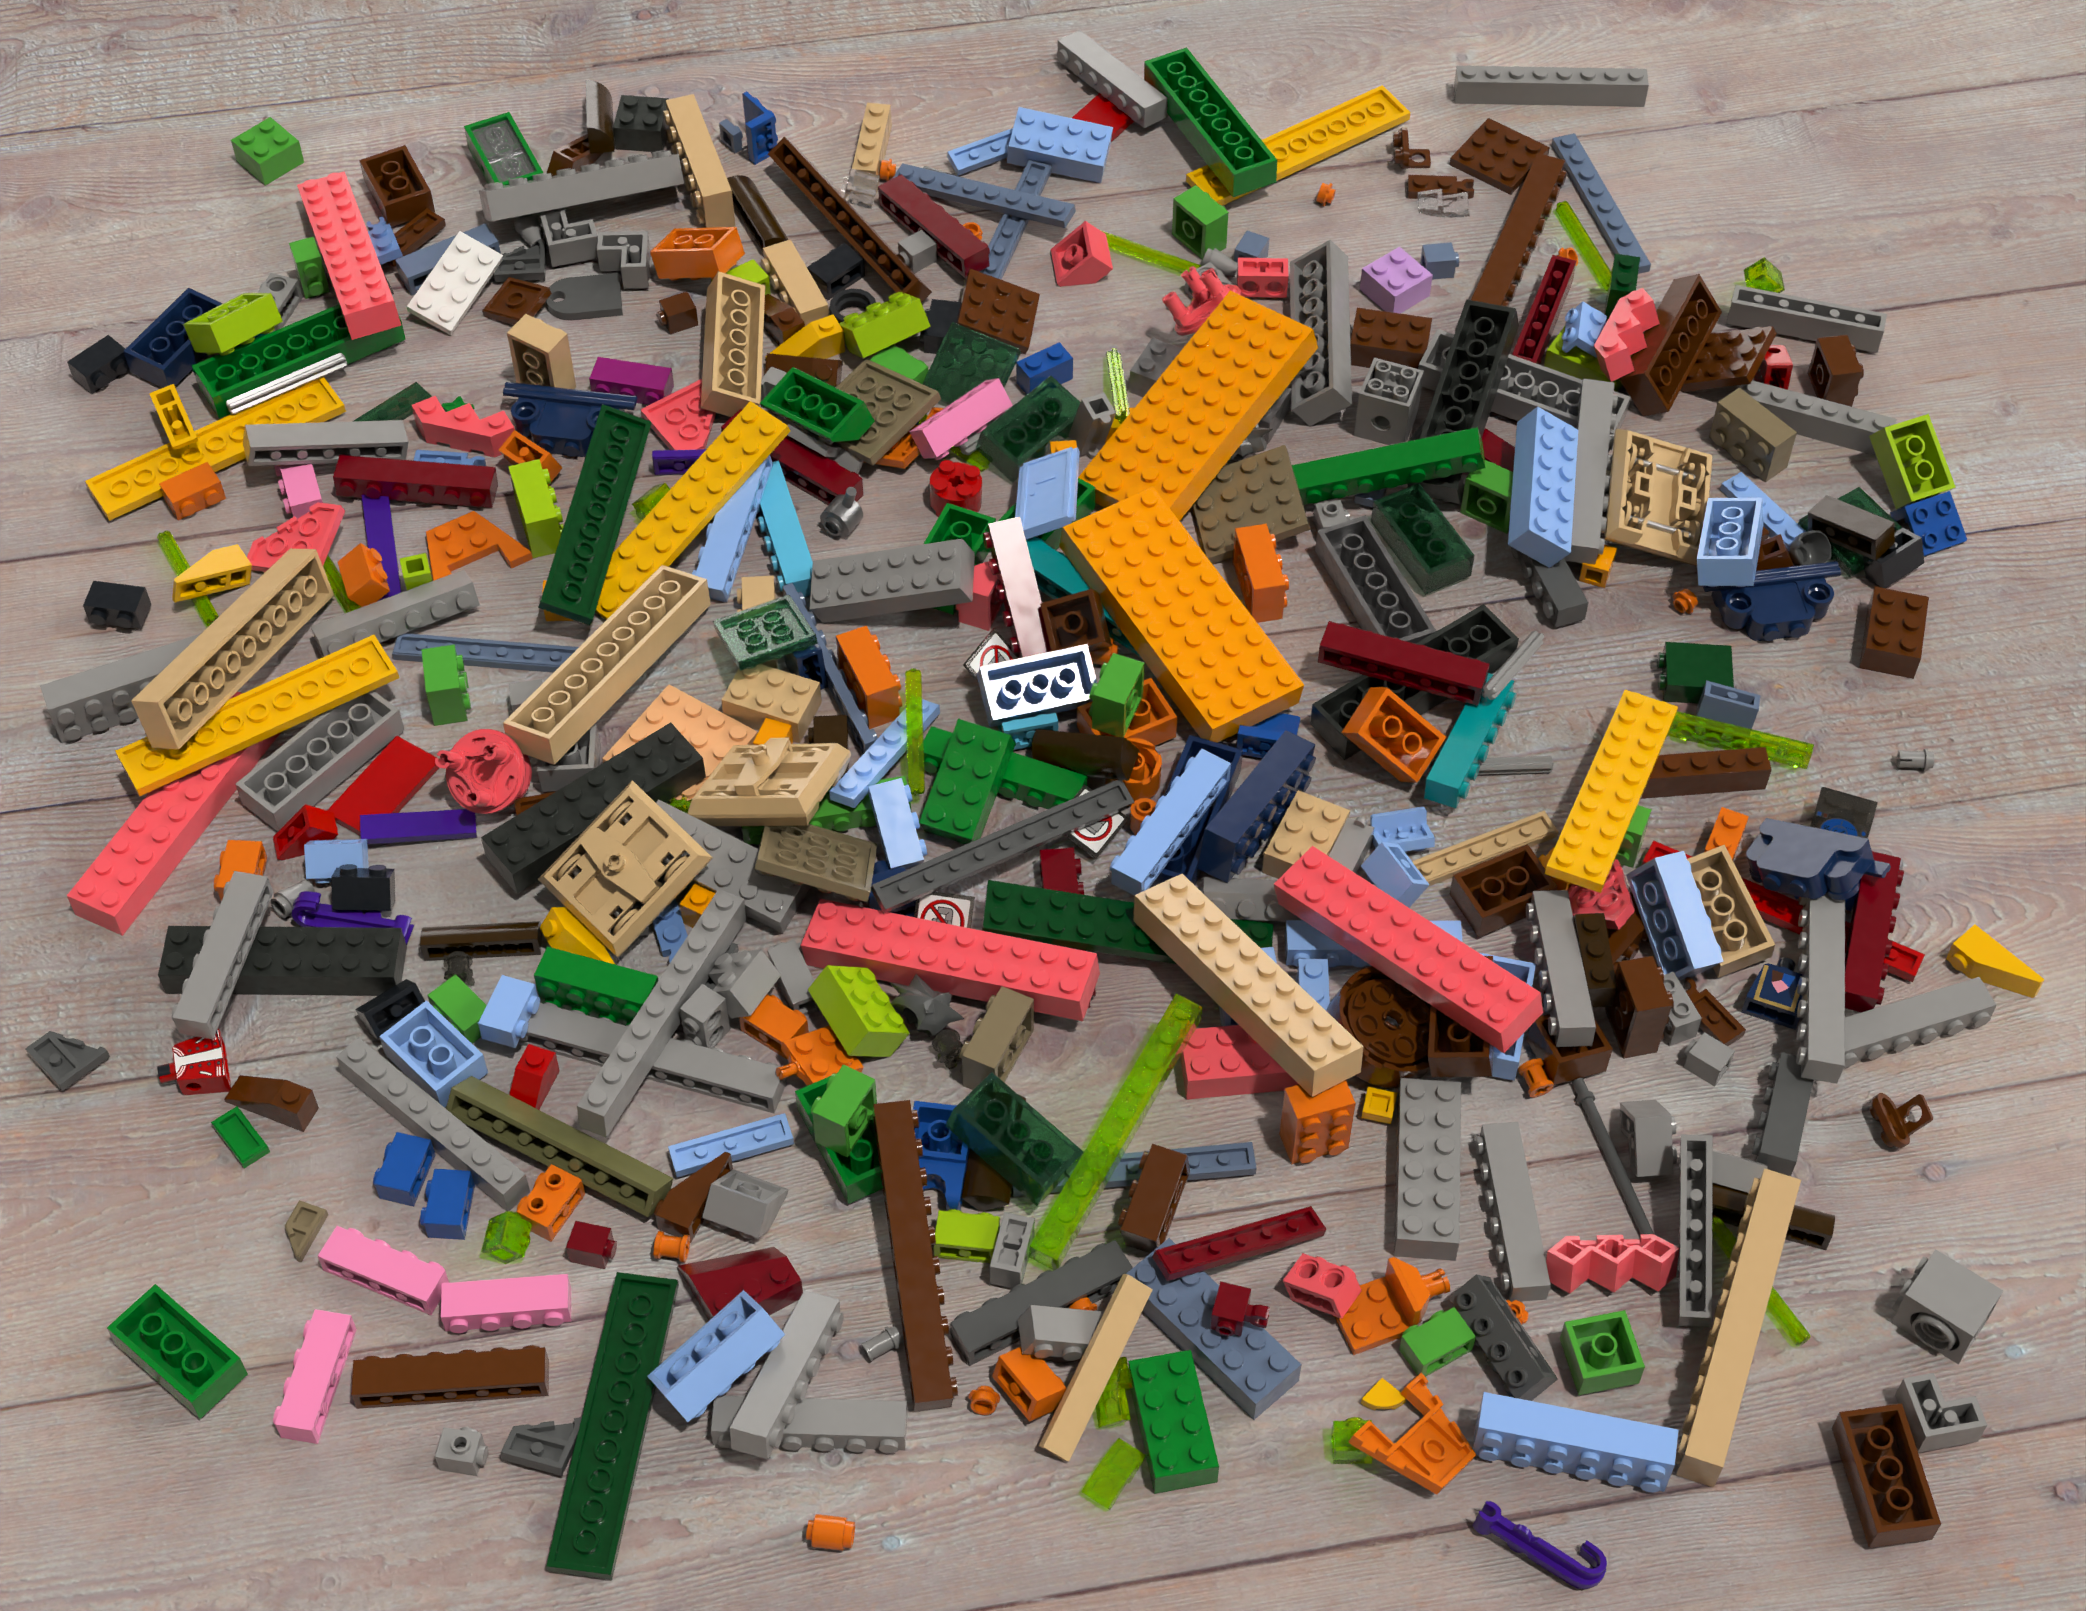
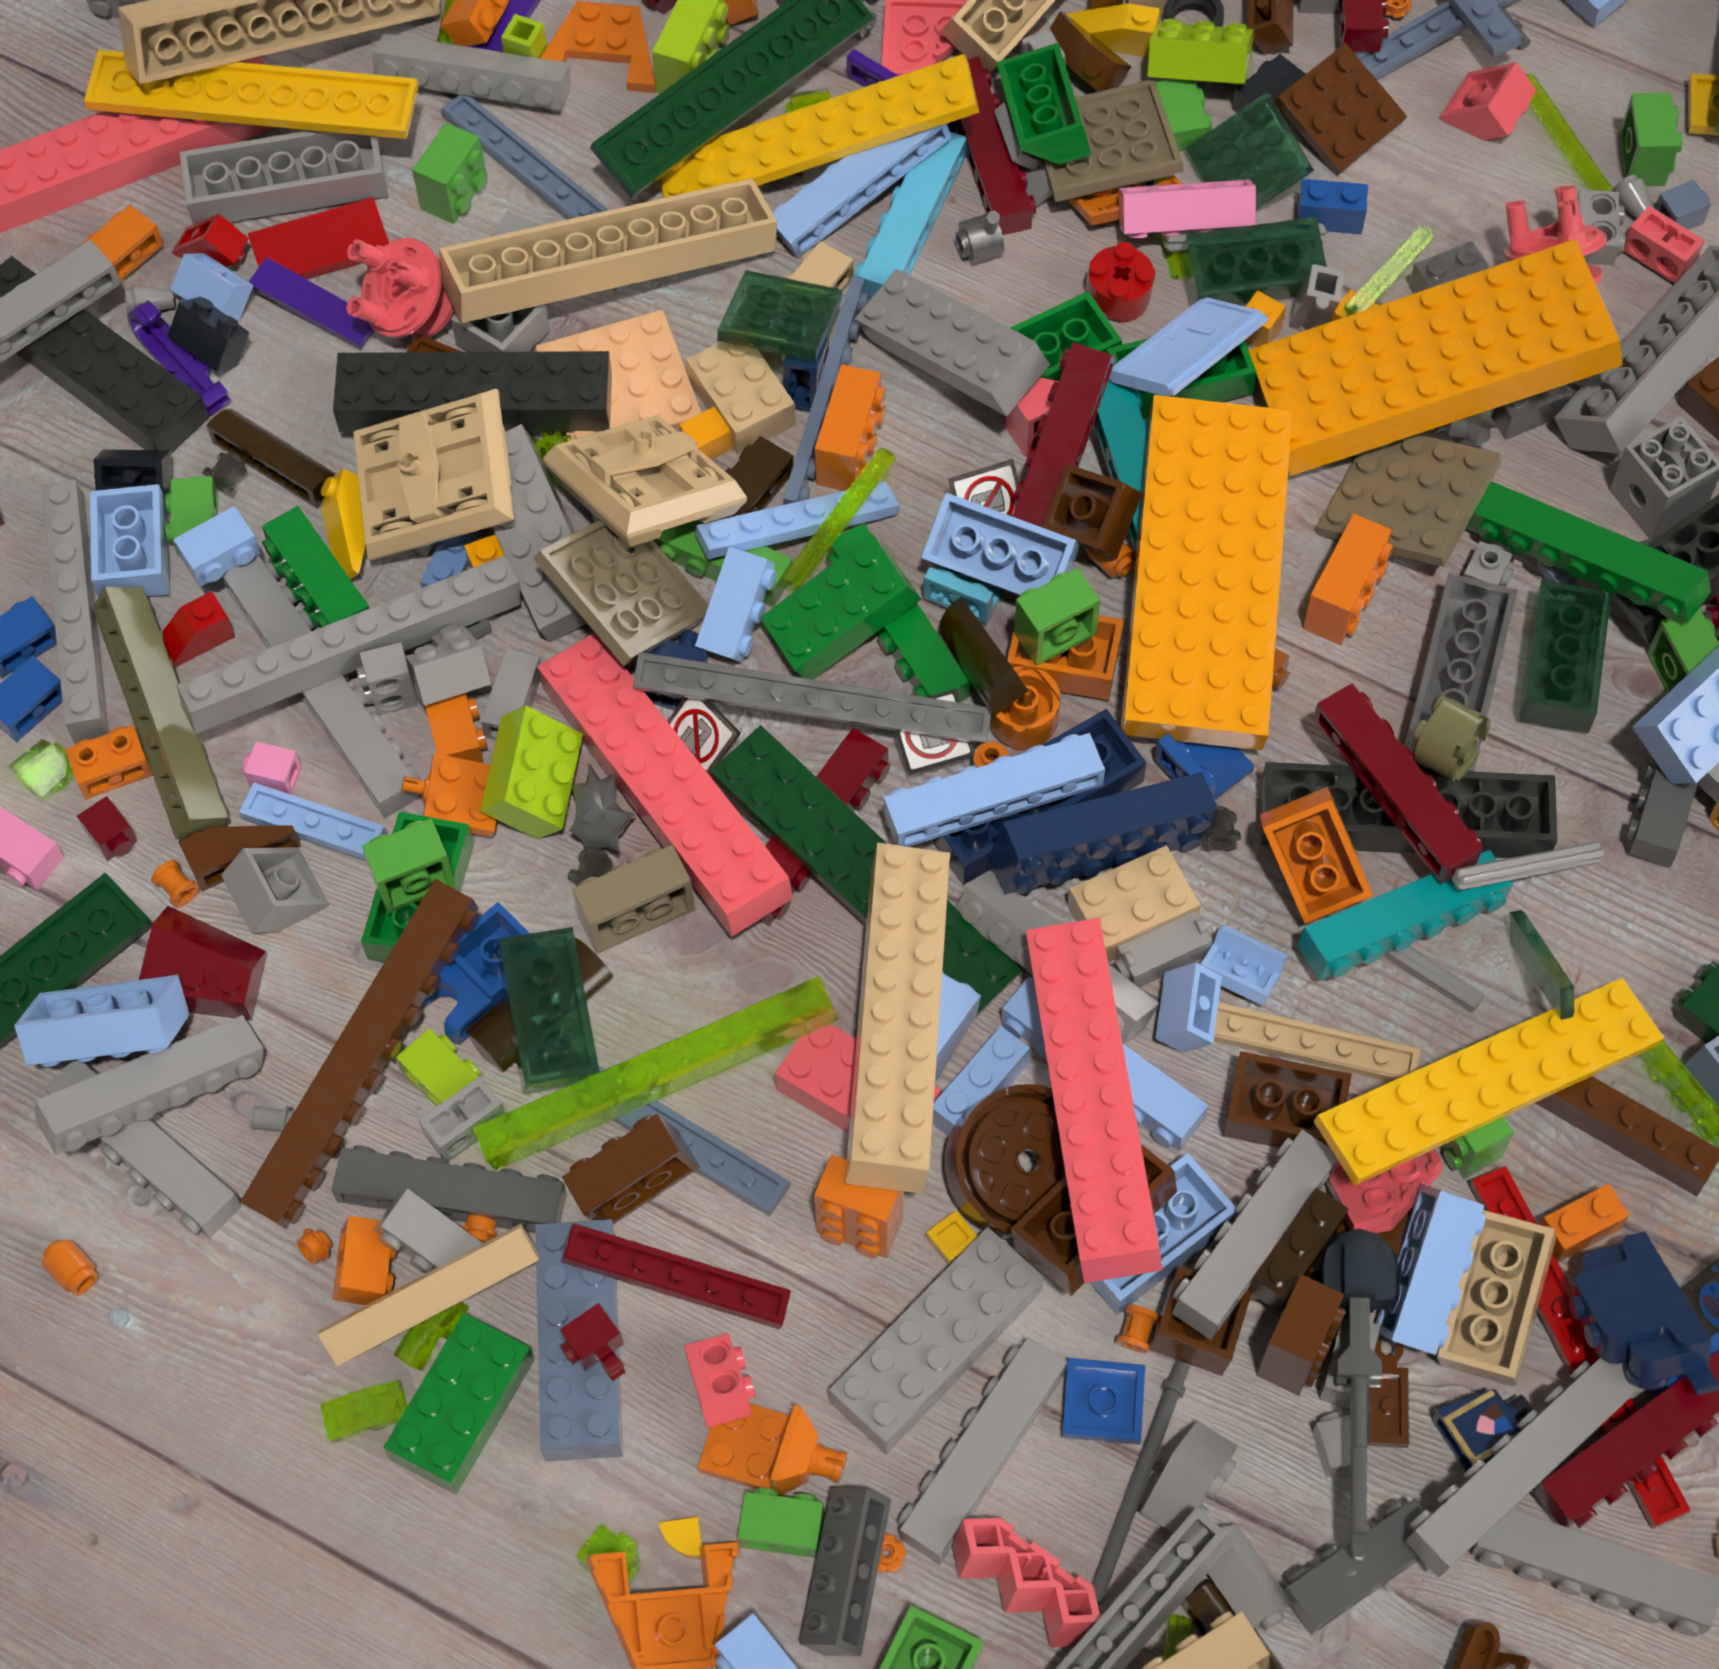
camera: 40 degrees right, 10 degrees up
(670, 1129) = (272, 767): none -> bright pink brick
(1321, 768) = (1222, 833): none -> clear smoke brick
(1413, 615) = (1450, 738): none -> olive brick
(1555, 1133) = (1103, 1401): none -> blue plate
(1575, 711) = (1542, 964): none -> clear green tile
(1644, 937) = (1368, 1276): none -> piece

